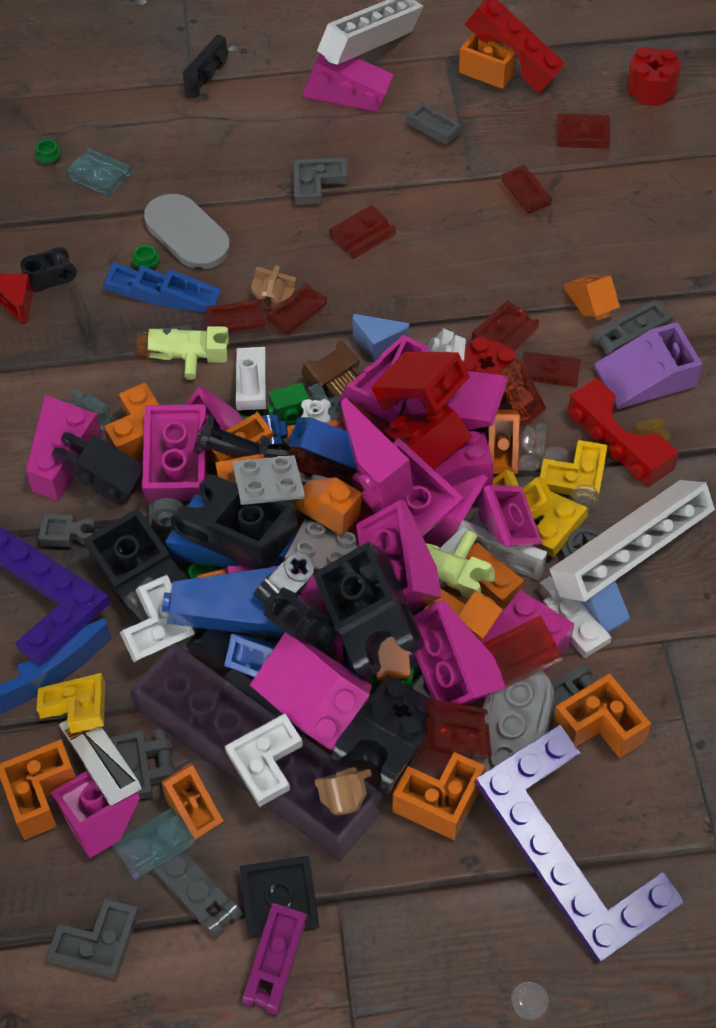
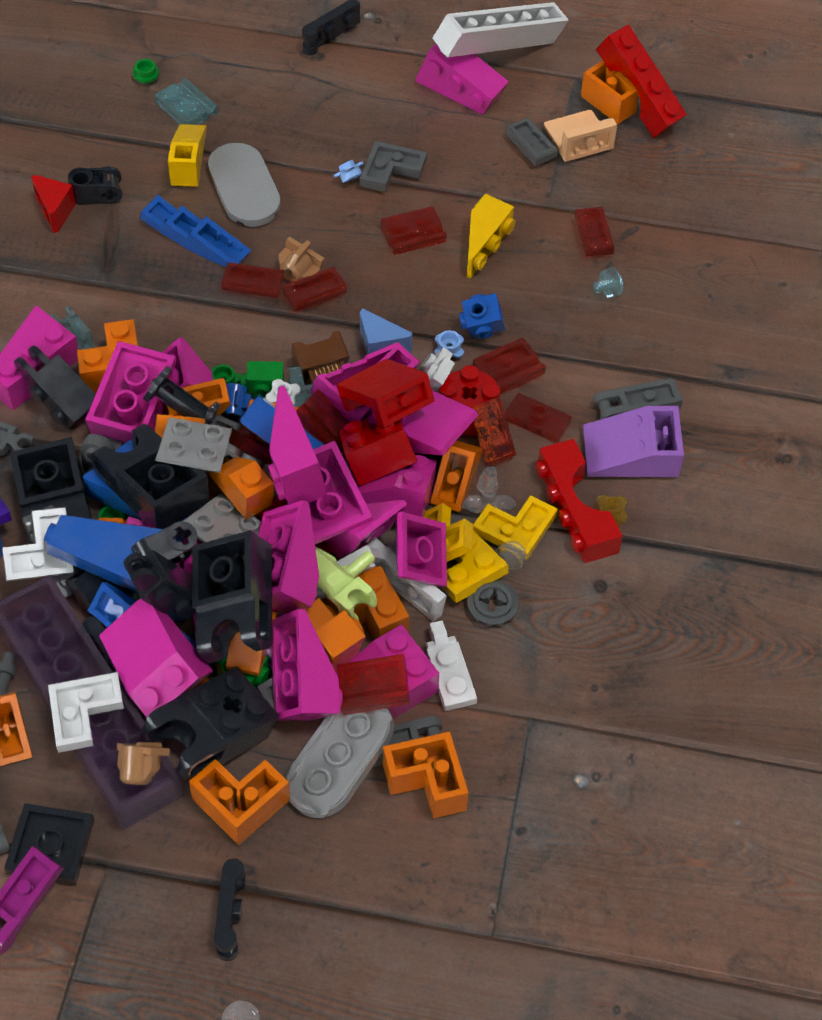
camera: 15 degrees right, 0 degrees up
(123, 218) = (186, 155): none -> yellow slope
(145, 256) = (193, 199): green plate -> none
(185, 344) = (193, 293): yellowish green piece -> none
(251, 378) = (238, 343): white piece -> none
(281, 193) = (349, 171): none -> light blue plate
(428, 214) = (488, 225): none -> yellow slope
(440, 321) = (451, 341): none -> light blue plate
(458, 729) = (279, 739): clear red plate -> none
(463, 291) = (482, 316): none -> blue brick
(475, 903) = (229, 909): none -> black plate
(476, 106) = (581, 134): none -> light nougat bracket
(560, 231) = (609, 282): none -> clear light blue tile
(583, 131) = (680, 188): clear red plate -> none
(593, 295) = (612, 357): orange slope -> none
(598, 928) = (336, 972): plate -> none
(608, 608) = (483, 661): medium blue slope -> none
(632, 540) = (535, 608): white brick -> none
(653, 75) = (775, 150): red brick -> none

